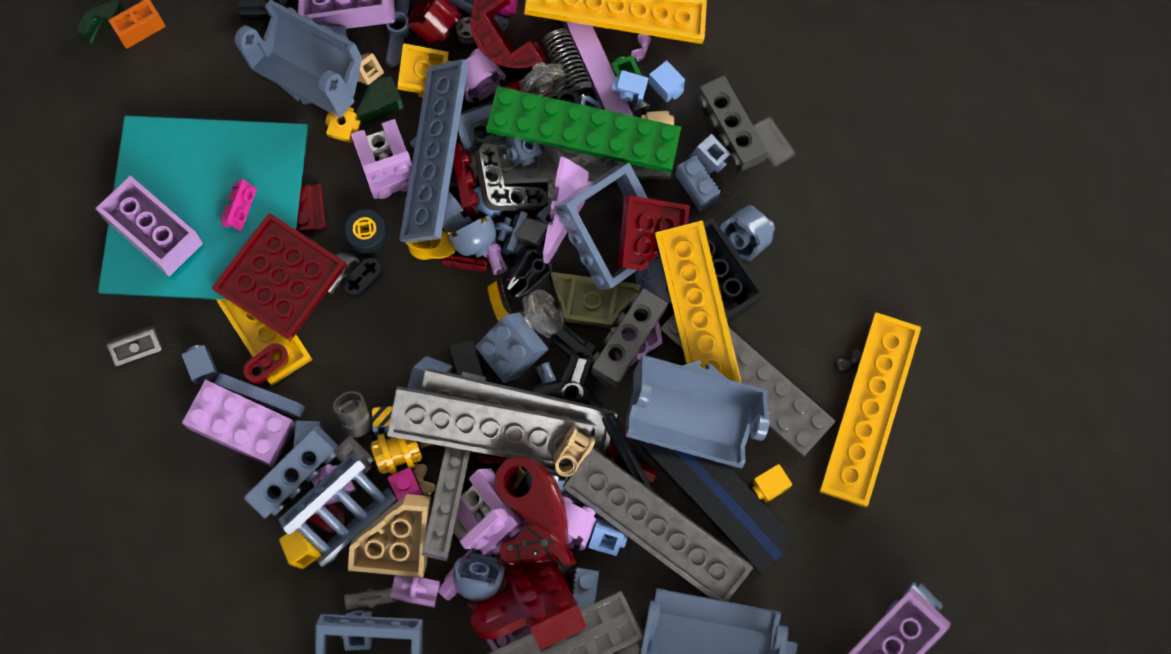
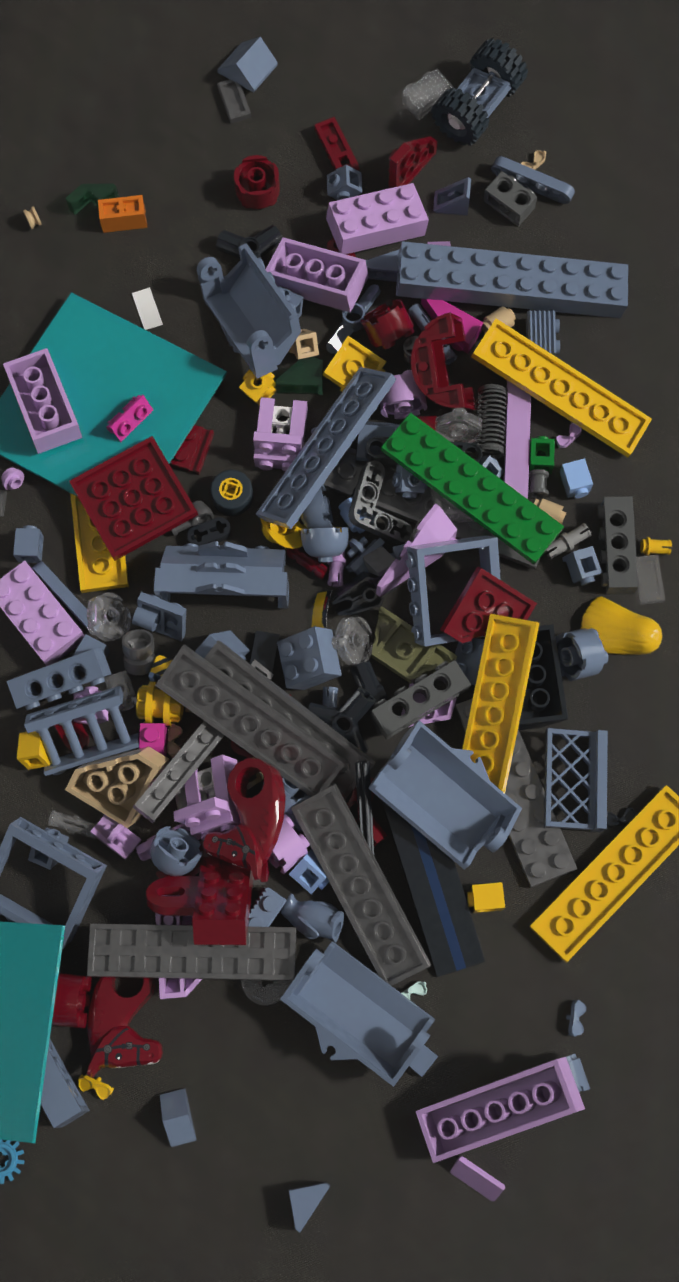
camera: 30 degrees right, 0 degrees up
(52, 63) = (32, 217): none -> tan bush
(154, 311) = (12, 478): none -> lavender plate
(202, 100) = (147, 308): none -> white sticker
(265, 362) = (84, 568): dark red plate -> none
(303, 405) = (97, 619): none -> clear plate
(357, 372) = (160, 616): none -> sand blue plate
(395, 305) = (223, 571): none -> sand blue piece
(466, 180) = (342, 486): dark red plate -> none
(574, 447) = (317, 776): tan piece -> none
(629, 576) = (314, 918): none -> sand blue animal
(630, 86) = (537, 468): light blue brick -> none
(687, 138) = (568, 540): none -> light grey pin
(697, 183) = (557, 586): sand blue brick -> none
(749, 593) = (417, 988): none -> light aqua piece
(761, 111) = (653, 546): none -> yellow pin
(770, 194) = (622, 629): none -> yellow hair
(813, 333) = (596, 780): none -> sand blue fence
(901, 558) = (575, 1026): none -> sand blue piece

